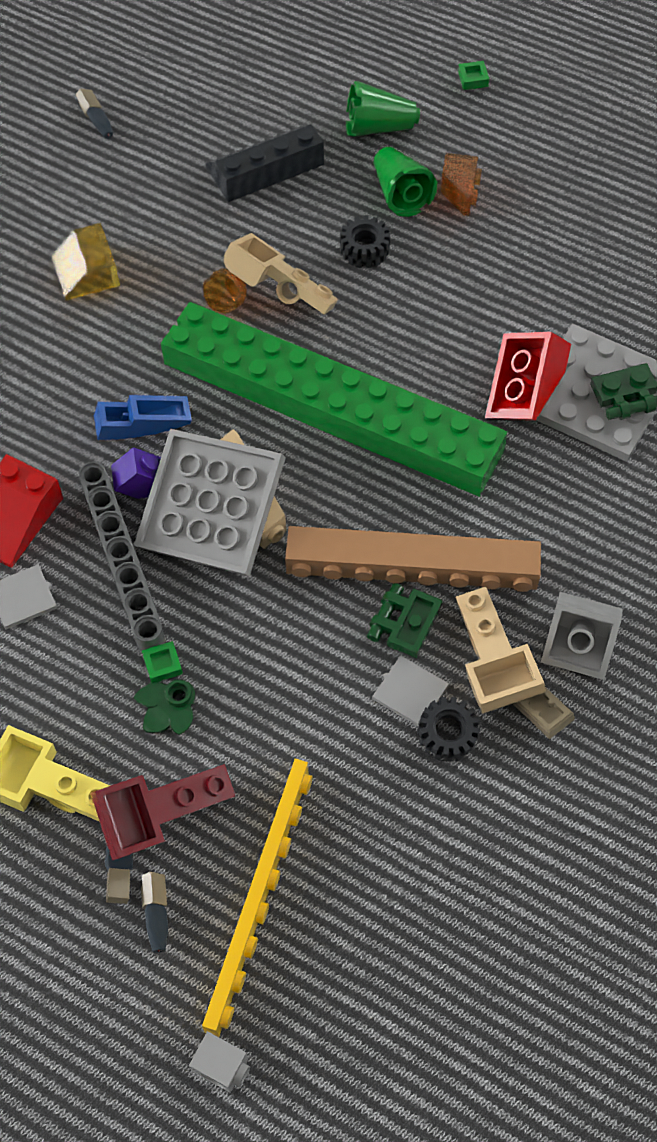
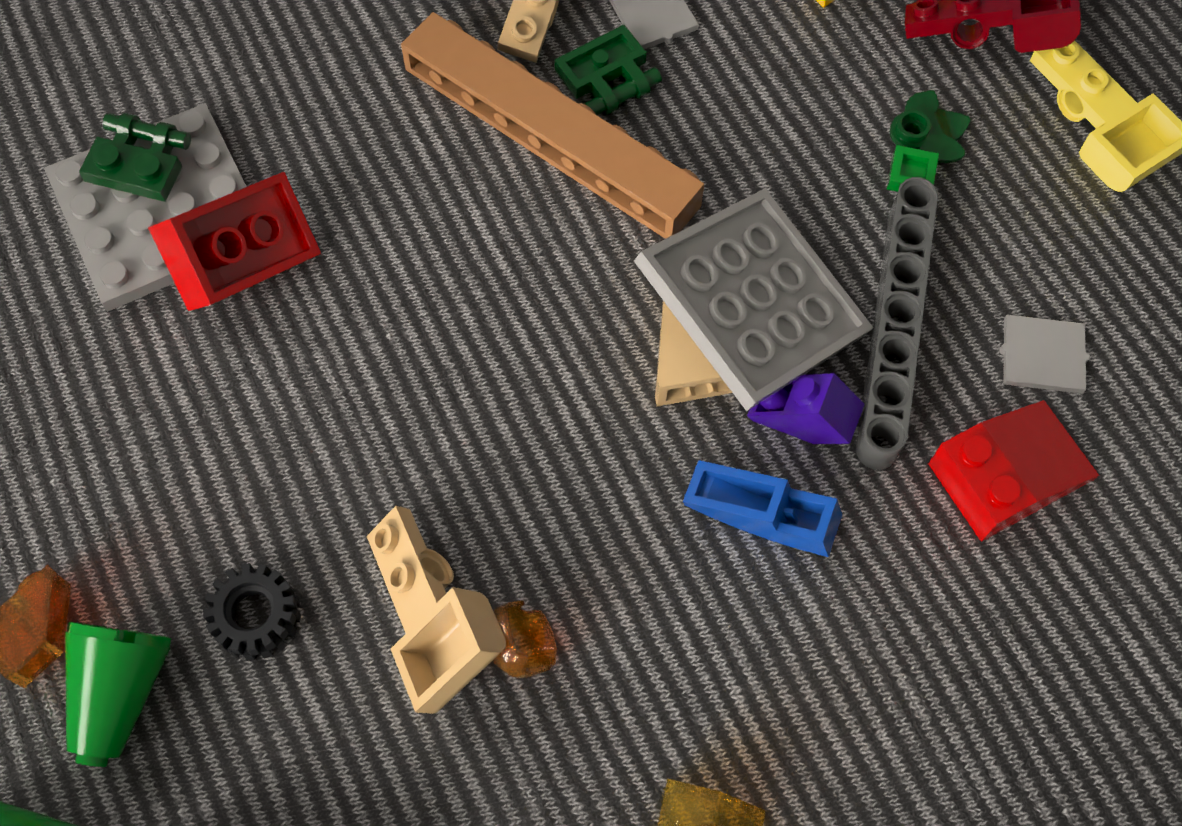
camera: 150 degrees left, 5 degrees up
(335, 398) = (504, 392): green piece -> none

